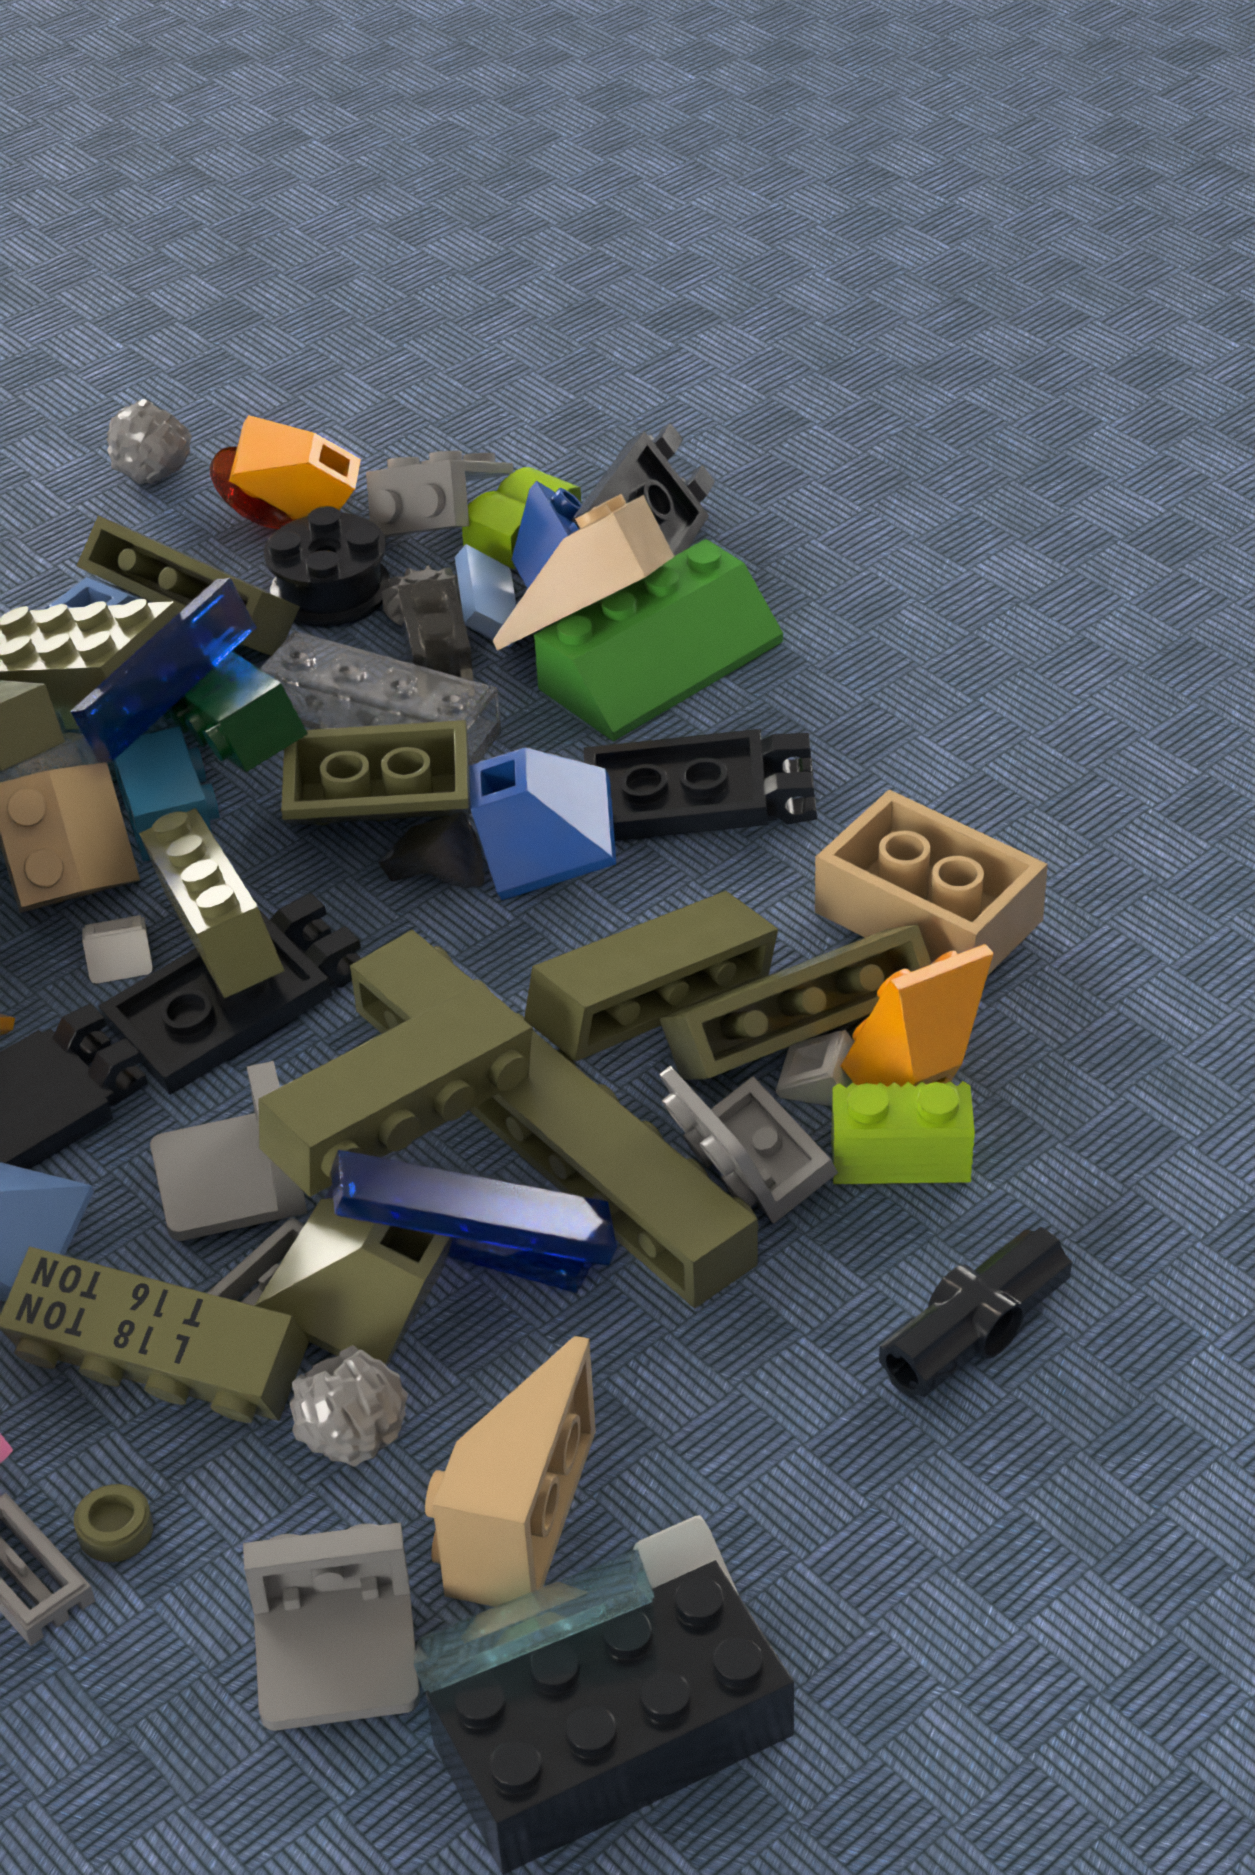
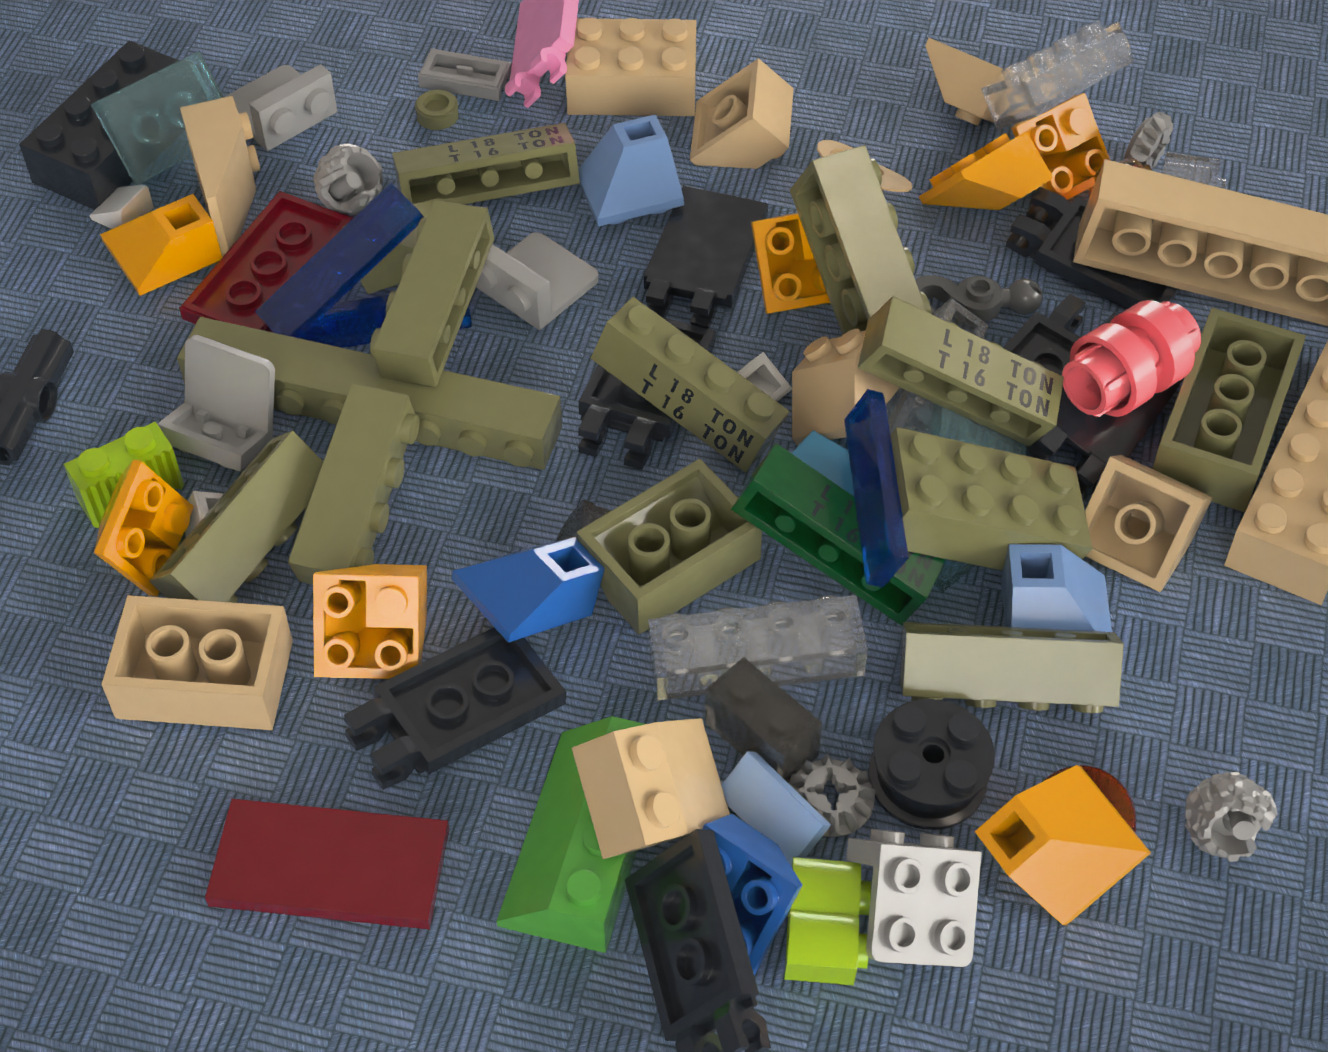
camera: 145 degrees right, 10 degrees up
(633, 1354) = (262, 261): none -> dark red tile
(663, 1452) = (164, 244): none -> light orange slope
(706, 857) = (369, 620): none -> light orange slope
(903, 725) = (328, 864): none -> dark red tile

